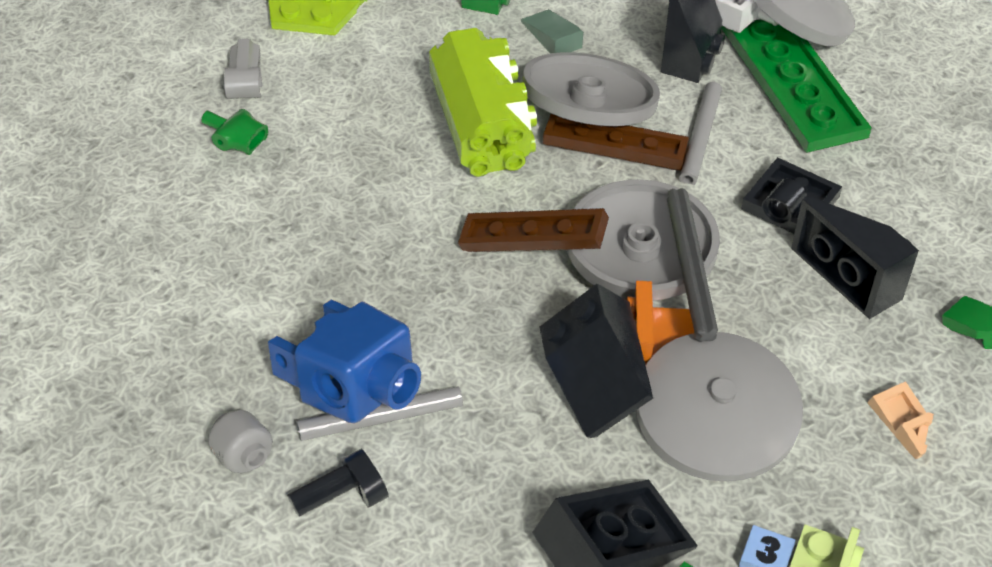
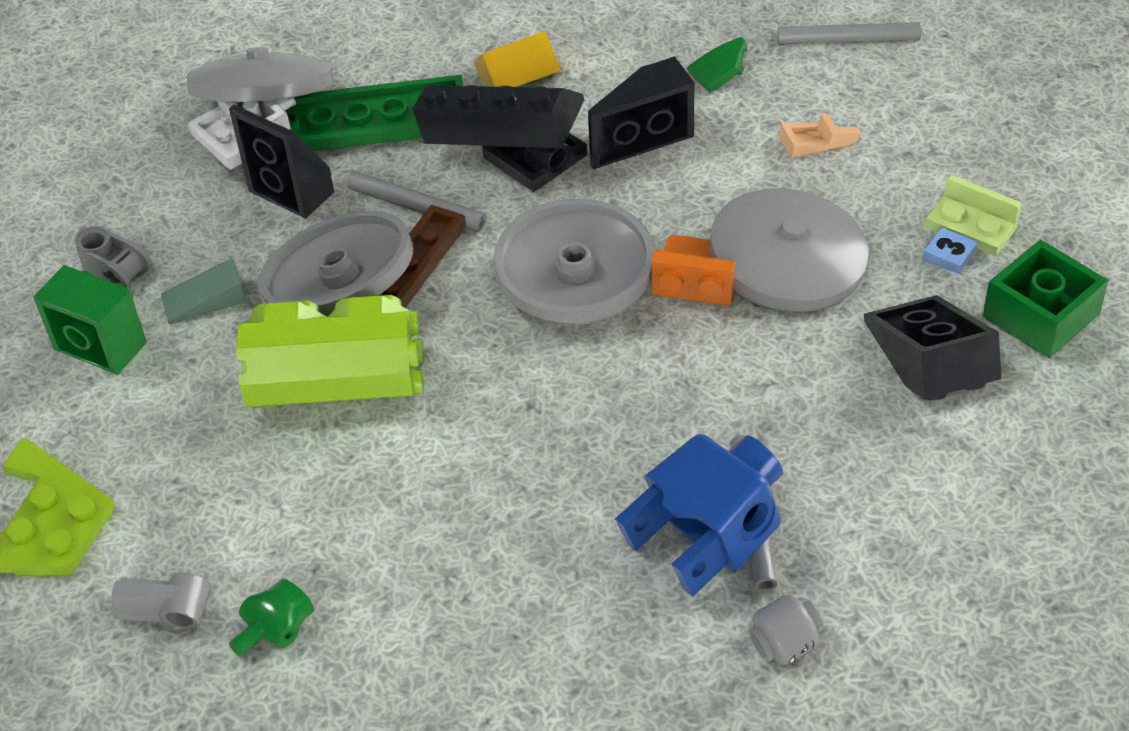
camera: 75 degrees left, 0 degrees up
(356, 472) = (836, 532): black piece -> none
(534, 230) = (549, 338): reddish brown plate -> none
(597, 359) = (741, 312): black slope -> none
(692, 265) = (632, 220): dark grey axle -> none
(804, 146) = (496, 115): none -> black slope
(908, 166) = (518, 62): none -> yellow brick

